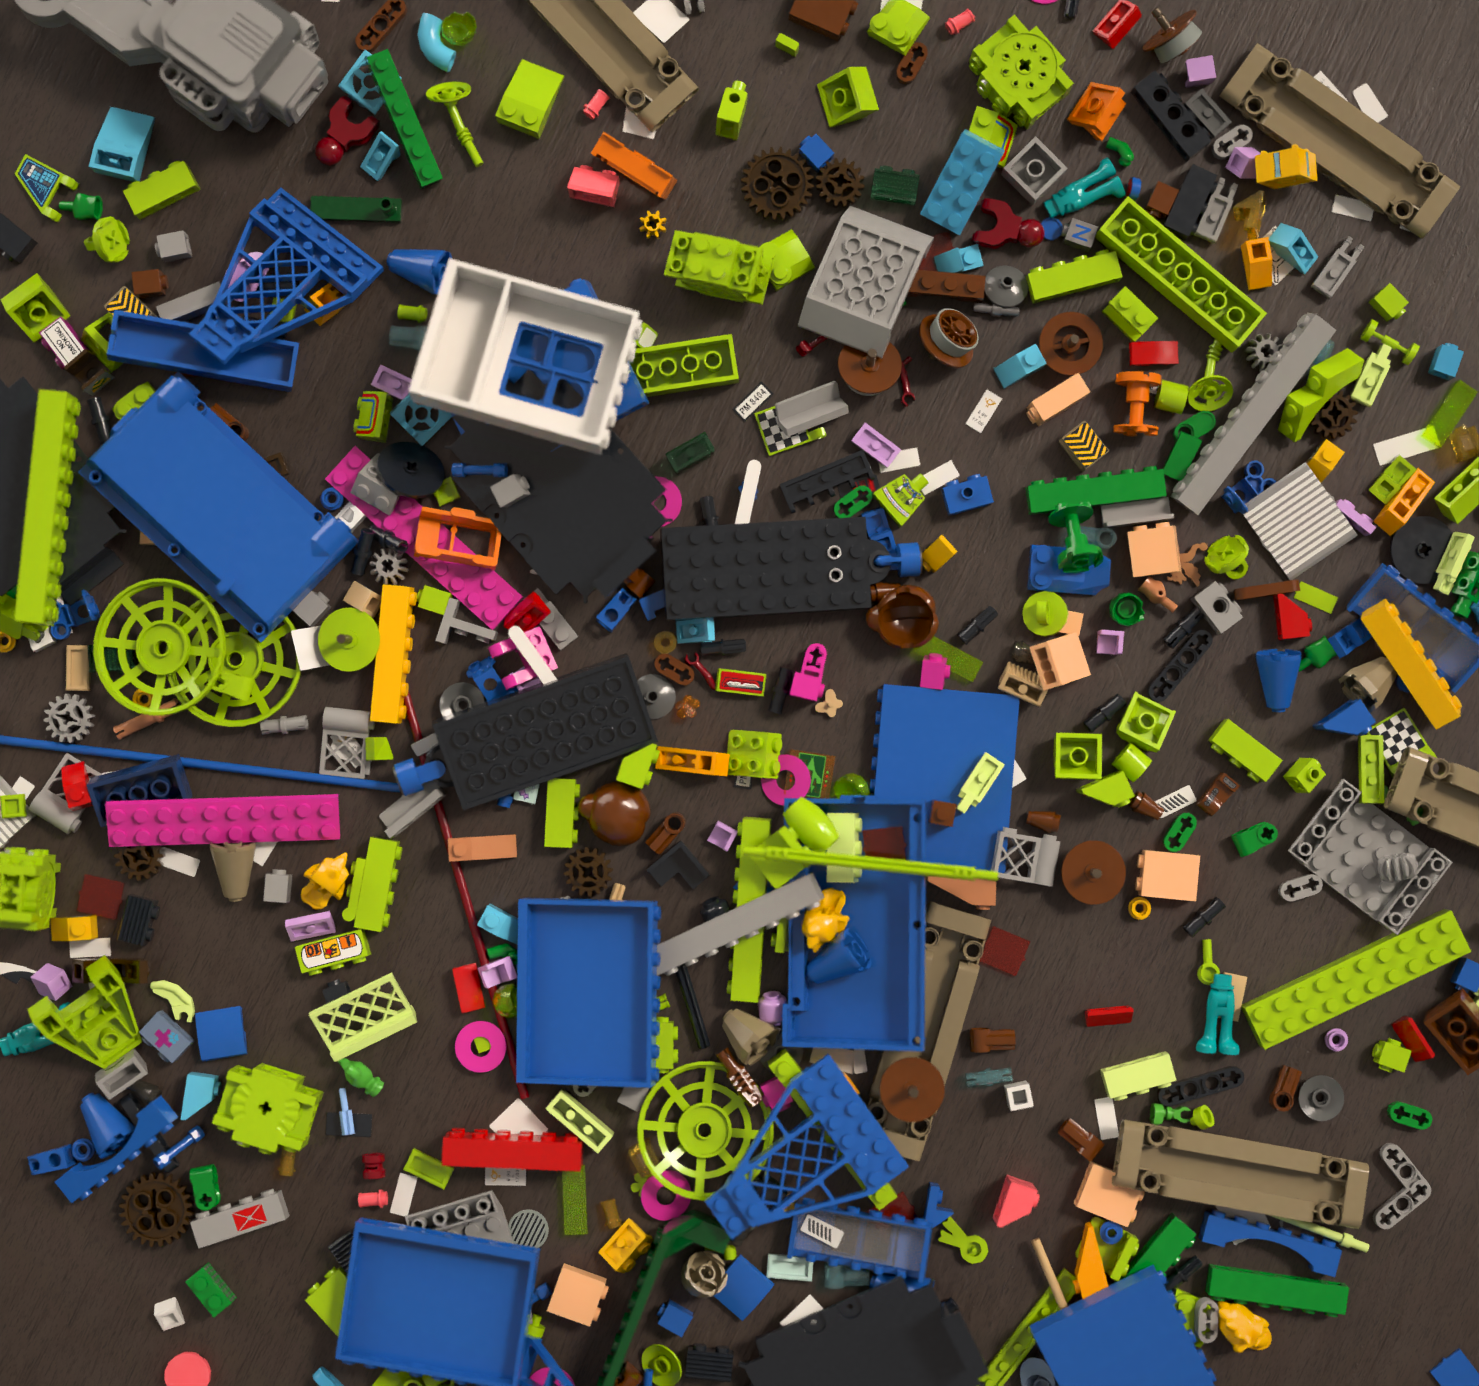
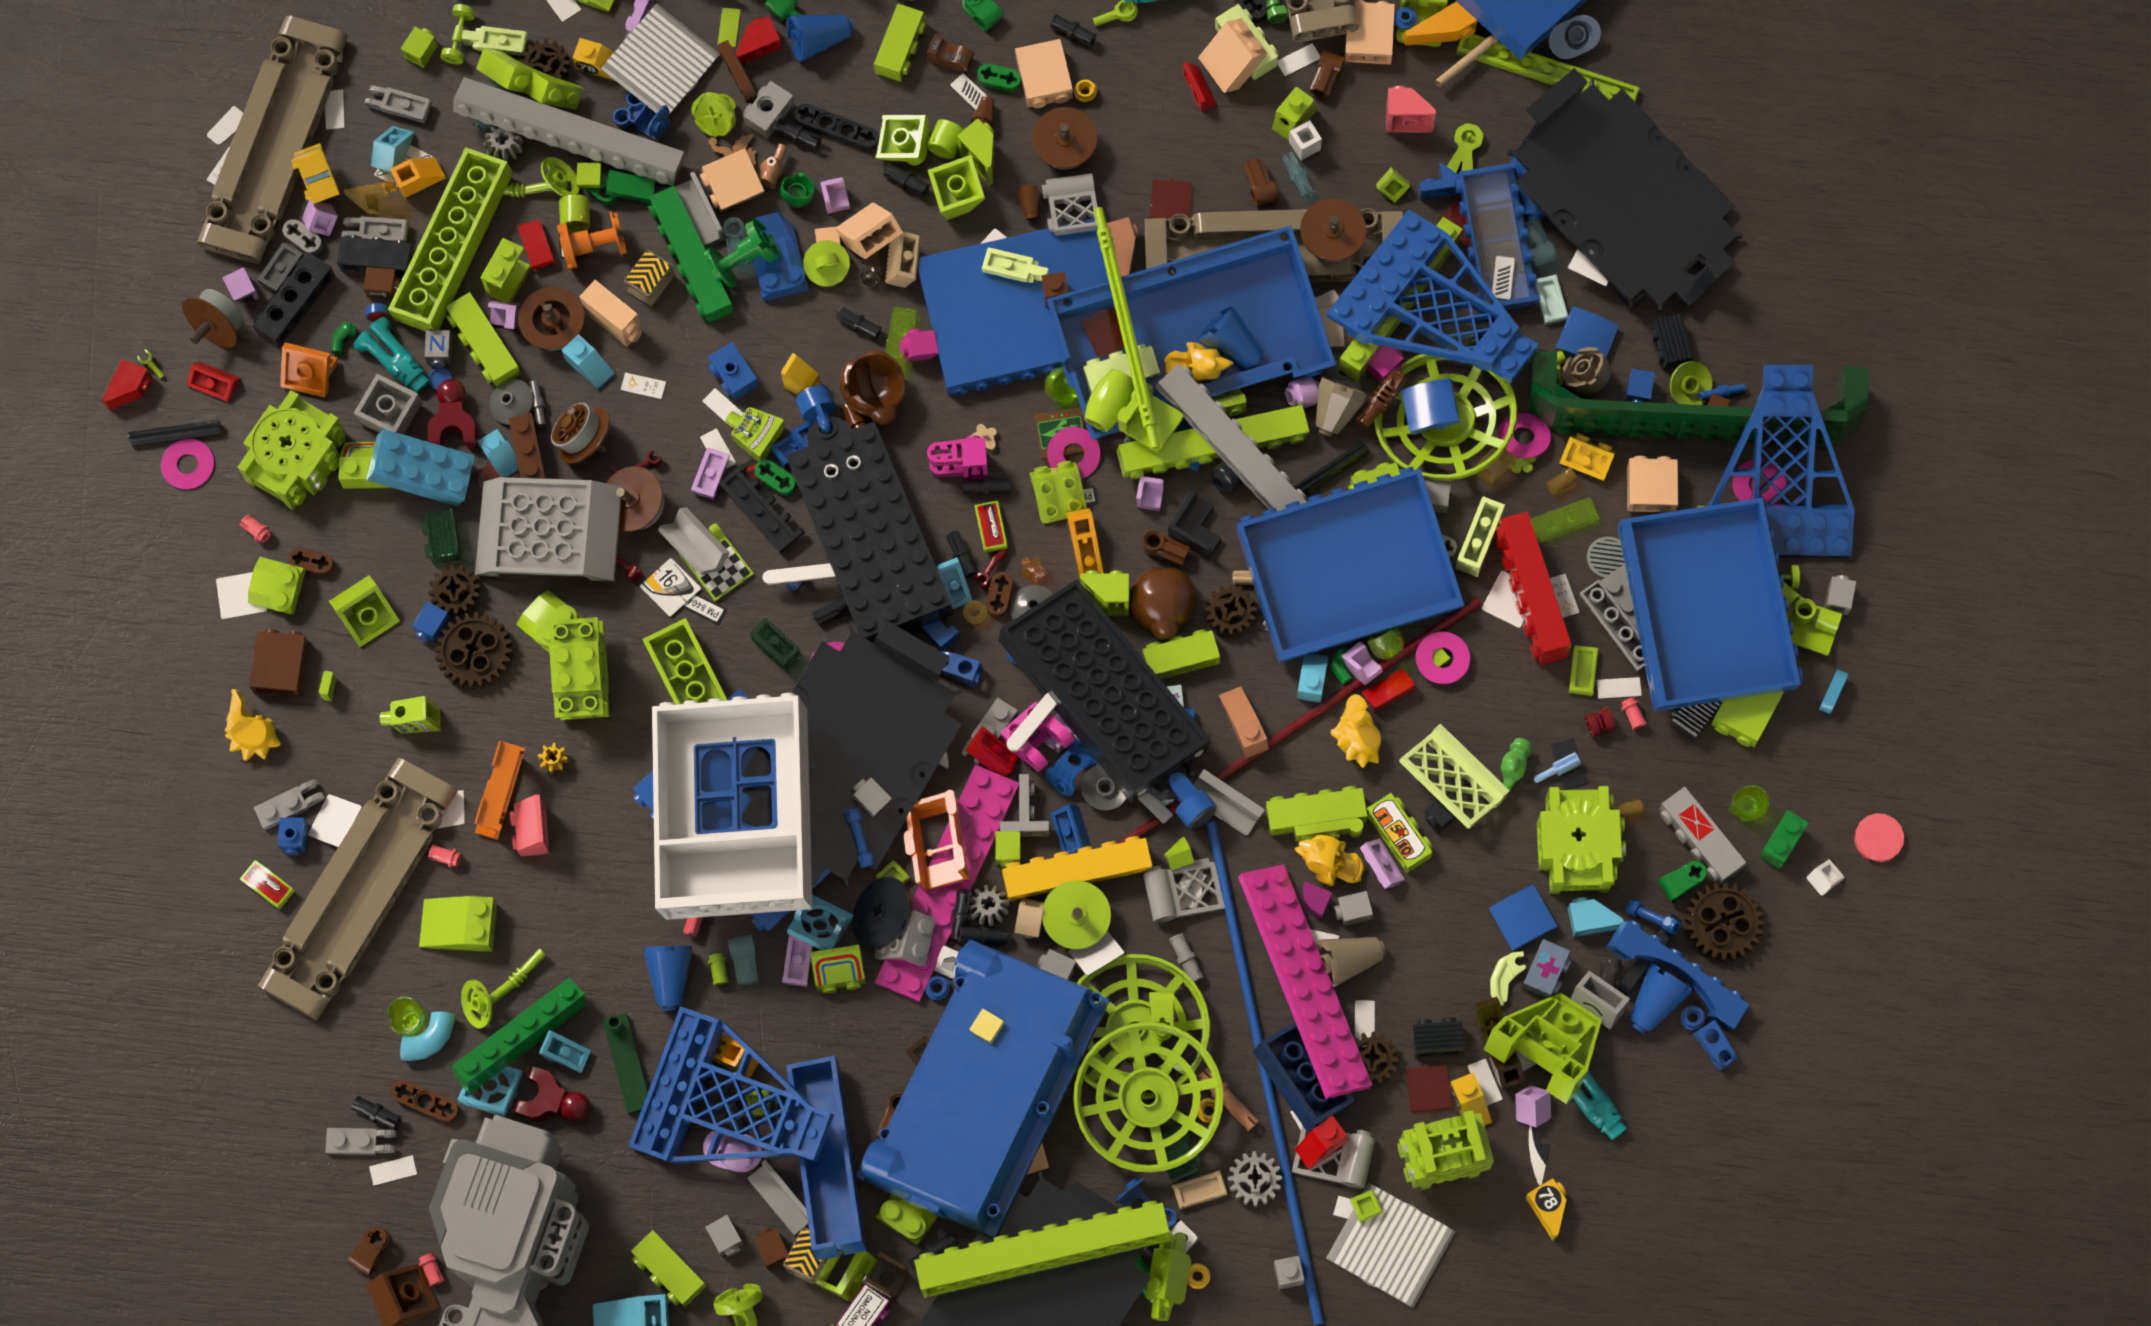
camera: 105 degrees left, 15 degrees down
(253, 1272) = (1749, 803): none -> clear neon green hair
(262, 524) = (987, 1026): none -> light yellow tile
(297, 856) = (1315, 899): none -> magenta brick
(434, 662) = (1070, 828): none -> blue slope
(434, 944) = (1357, 733): none -> yellow head
(715, 1119) = (1430, 406): none -> blue slope
(781, 377) = (670, 587): none -> sticker
(950, 1162) = (1393, 185): none -> lime slope
(1048, 1093) = (1295, 110): none -> lime torso
(1093, 305) = (504, 314): none -> lavender panel
(1123, 1057) = (1232, 55): none -> light nougat brick
(1204, 421) = (589, 175): none -> lime tile

